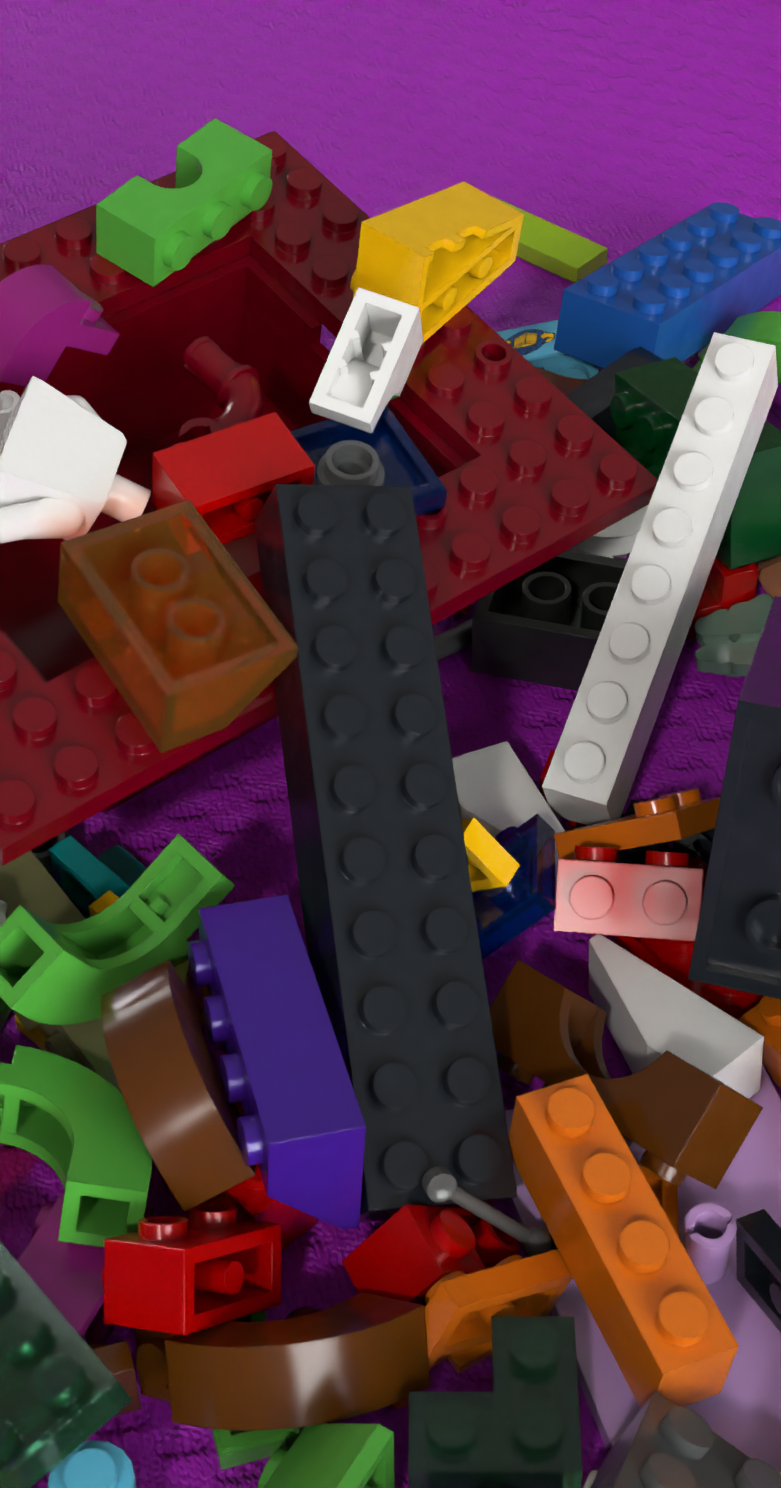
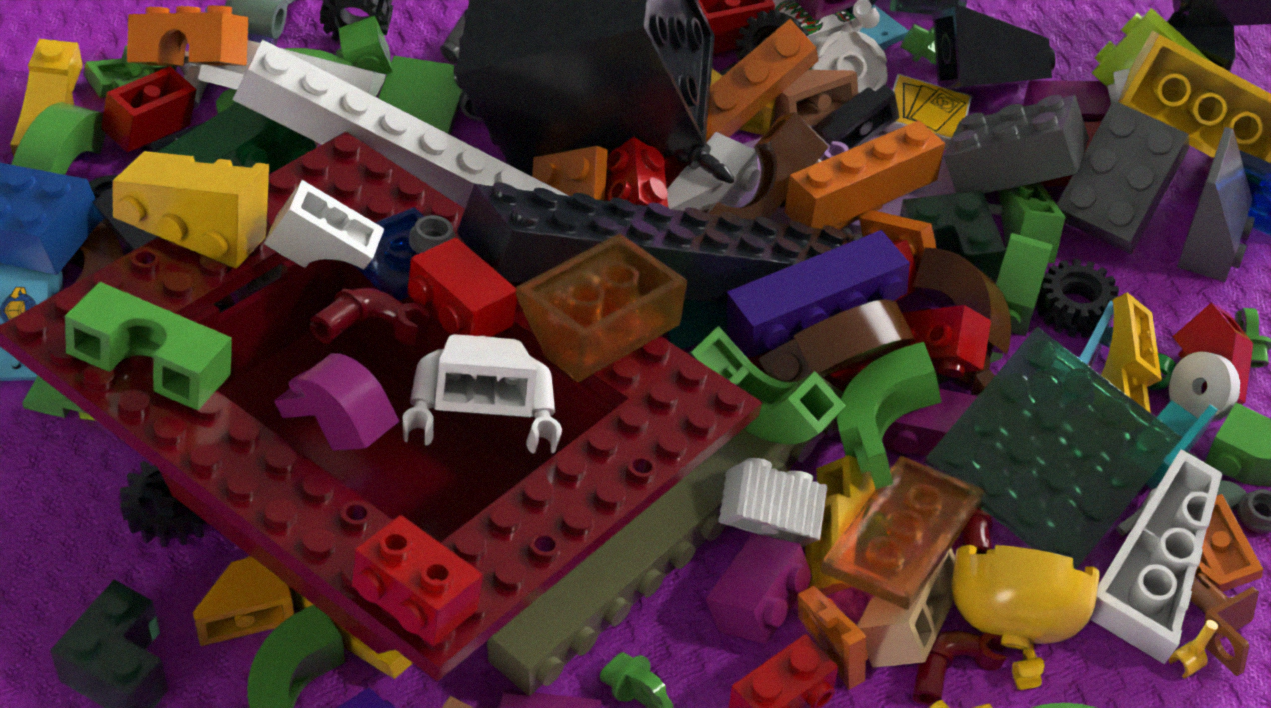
camera: 105 degrees left, 5 degrees up
(675, 999) = (702, 158): none -> black bar

